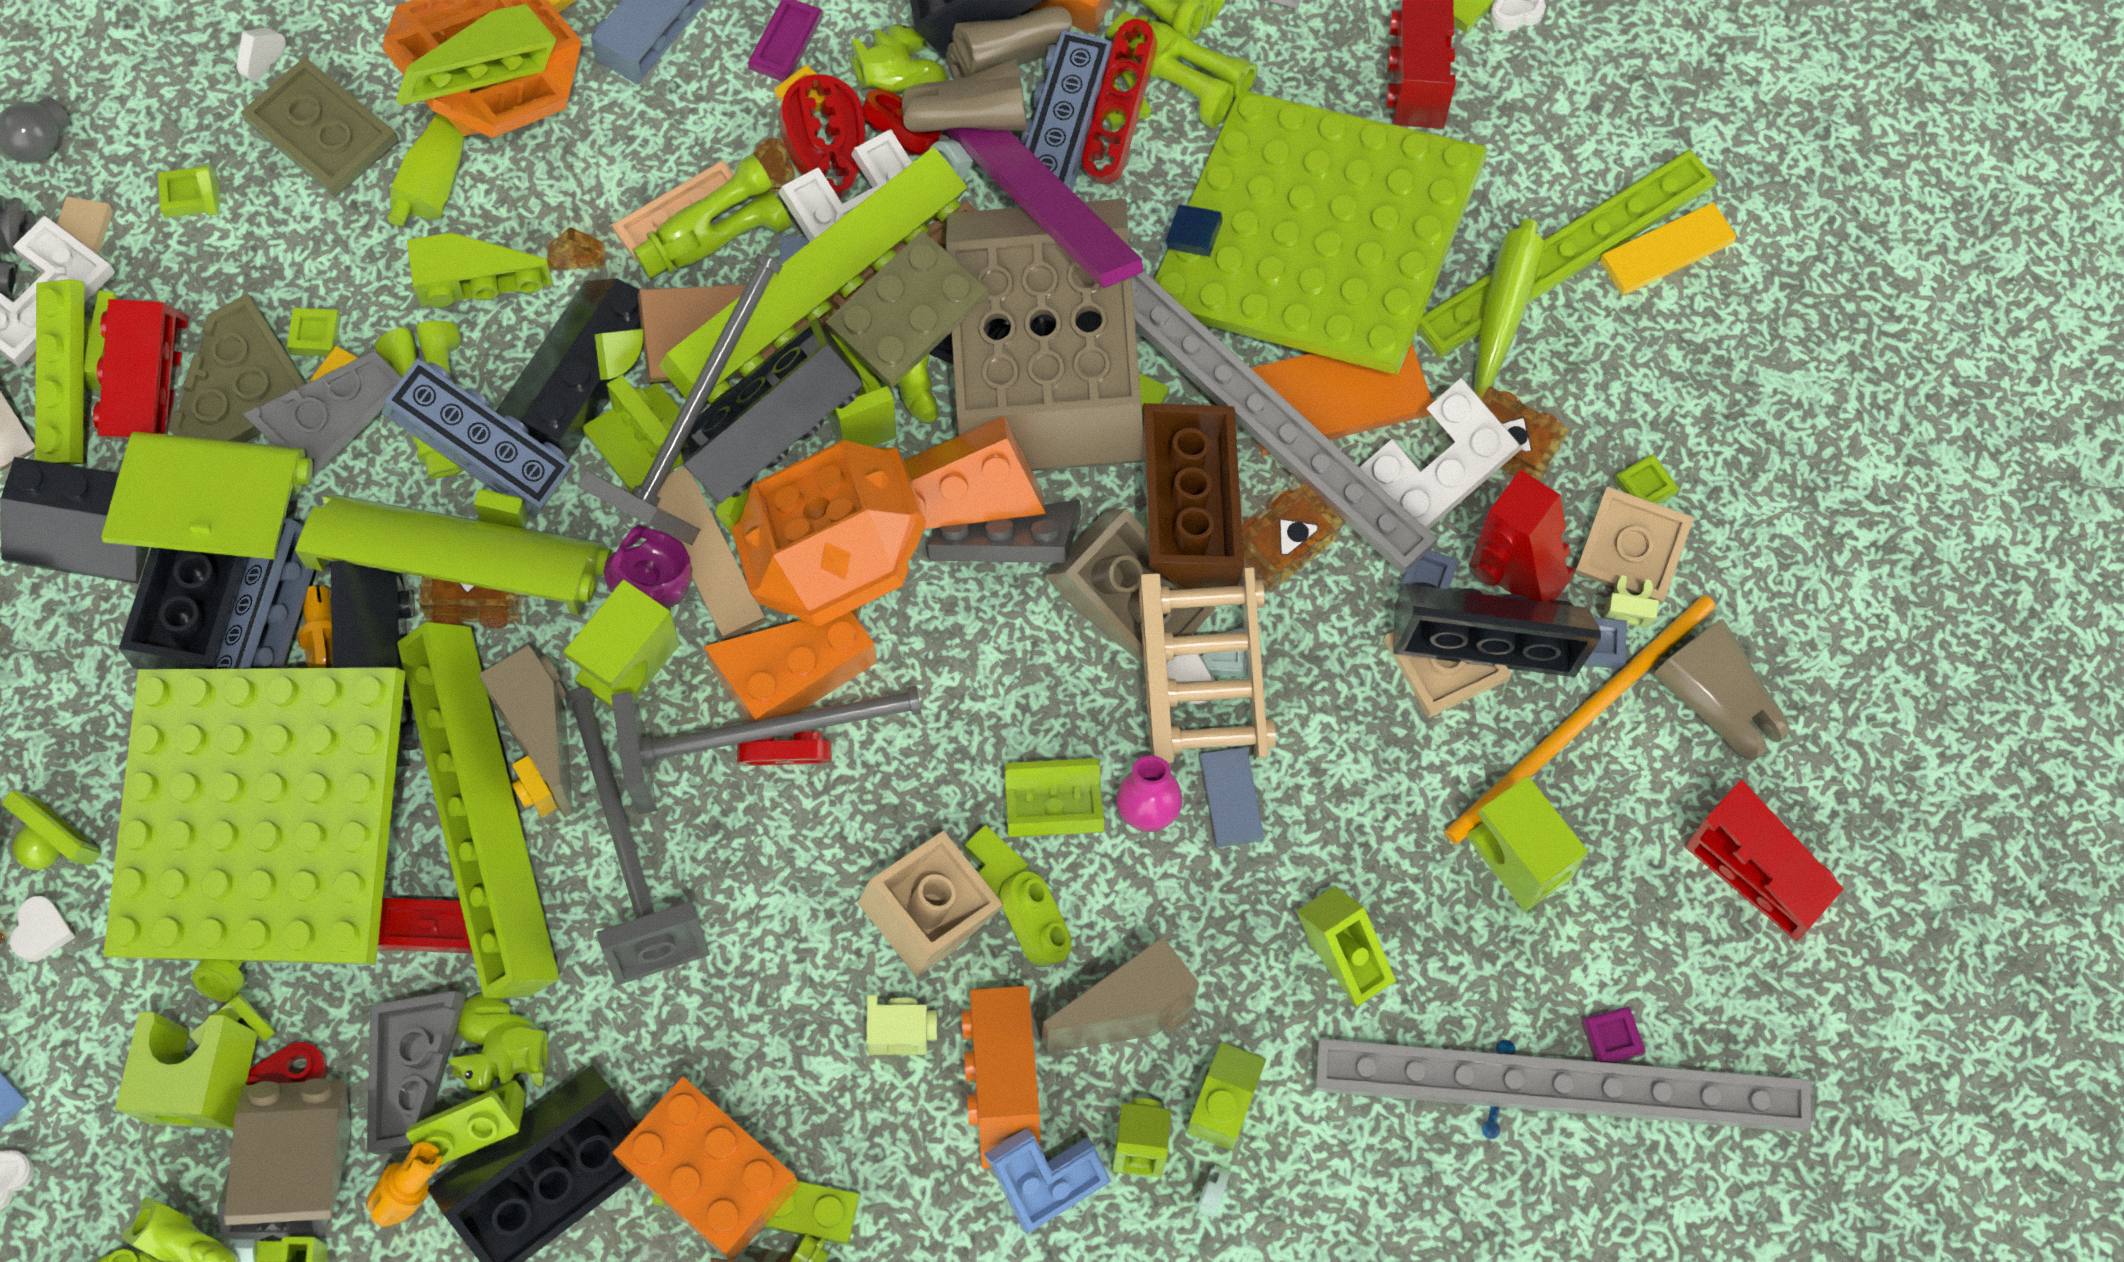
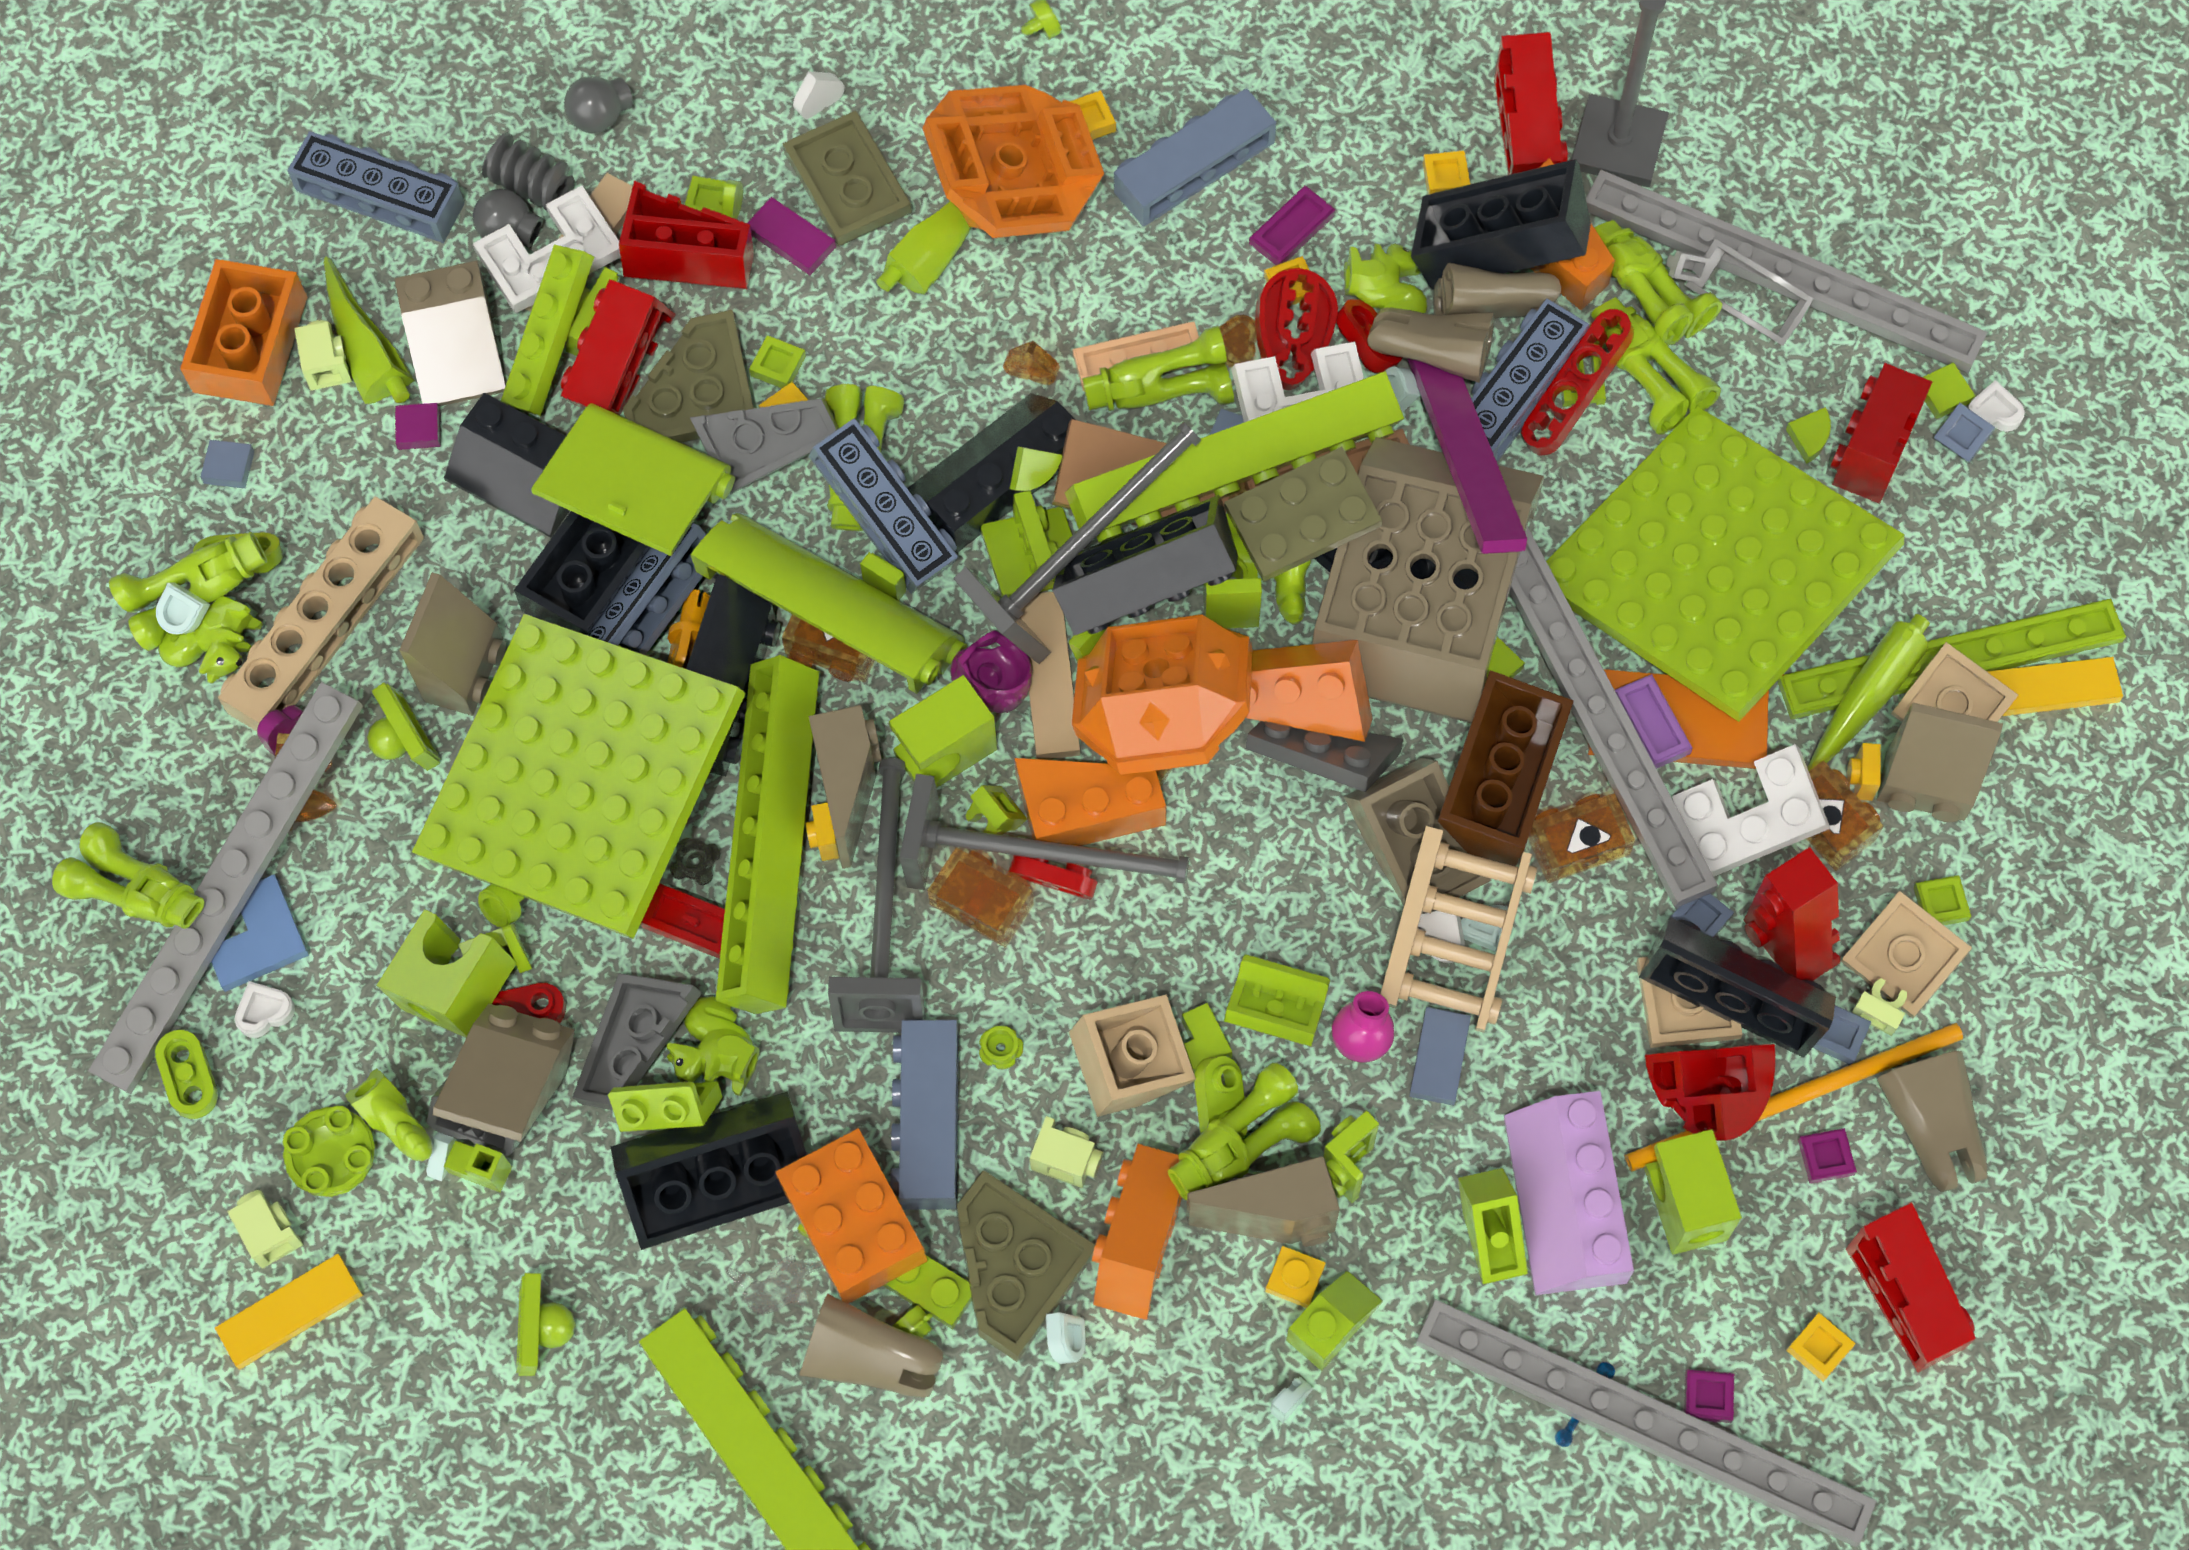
camera: 25 degrees right, 0 degrees up
(39, 930) = (368, 810): white tile -> none
(72, 730) = (451, 648): none -> dark tan slope
(172, 243) = (682, 243): none -> red wedge
(281, 202) = (791, 236): none -> magenta tile
(399, 852) = (690, 849): none -> clear smoke plate
(403, 1186) = (591, 1137): light orange arm -> none
(461, 268) = (926, 347): lime slope -> none
(487, 52) = (1018, 159): lime slope -> none
(703, 702) = (997, 807): none -> lime tile
(718, 796) = (981, 896): none -> clear orange brick
(745, 1037) = (927, 1115): none -> sand blue brick
(790, 930) = (1000, 1035): none -> lime plate
(889, 1154) = (1015, 1262): none -> olive plate
(968, 1212) = (1065, 1337): none -> light aqua tile
(1042, 1188) = (1139, 1342): medium blue tile -> none
(1058, 968) = (1220, 1151): none -> lime piece
(1142, 1138) = (1241, 1329): lime slope -> none
(1172, 1066) = (1295, 1277): none -> yellow plate
(1178, 917) = (1351, 1143): none -> lime bracket
(1194, 230) = (1600, 525): clear blue tile -> none
(1316, 401) = (1654, 721): none -> medium lavender tile
(1355, 83) = (1810, 433): none -> lime tile
(1408, 887) = (1568, 1194): none -> lavender slope
(1497, 37) = (1964, 433): none -> sand blue tile
(1507, 734) = (1715, 1086): none -> red brick
(1530, 383) = (1865, 771): none -> yellow plate
(1587, 293) = (1958, 686): none -> tan tile
(1598, 351) = (1938, 762): none -> dark tan slope
(1634, 763) = (1827, 1156): none -> magenta tile
(1700, 950) = (1821, 1347): none -> yellow plate

